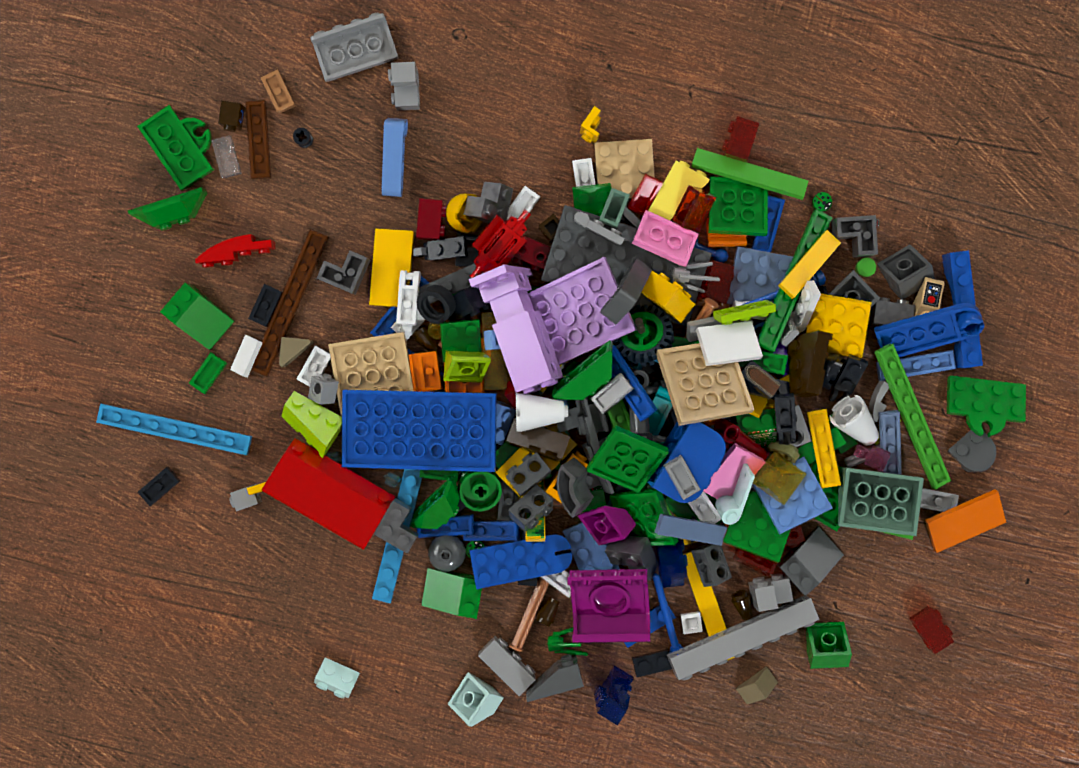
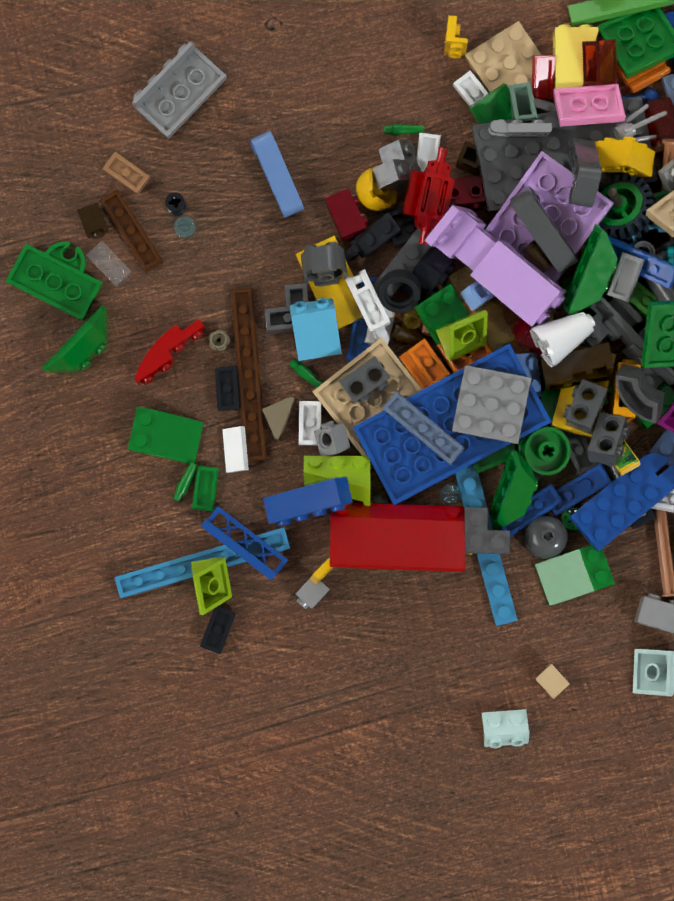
camera: 25 degrees left, 5 degrees down
(169, 449) = (211, 583): none -> lime slope
(190, 362) = (184, 483): none -> green animal
(204, 435) = (239, 550): none -> blue fence
(274, 263) = (218, 334): none -> dark tan plate
(276, 429) = (308, 500): none -> blue brick
(301, 159) = (184, 227): none -> clear light blue plate
(333, 326) = (305, 373): none -> green animal
(355, 297) = (315, 329): none -> medium azure panel
(370, 355) = (361, 375): none -> dark grey brick
(388, 250) = (324, 264): none -> dark grey brick
(390, 664) = (552, 681): none -> tan panel
(394, 421) = (423, 428): none -> sand blue tile
(405, 79) = (247, 94): light grey brick -> none
(455, 433) = (491, 404): none -> light grey plate
(513, 175) = (402, 129): none -> green animal
(554, 336) = (536, 256): none -> dark brown cone
(568, 321) = (543, 230): none -> dark grey beam

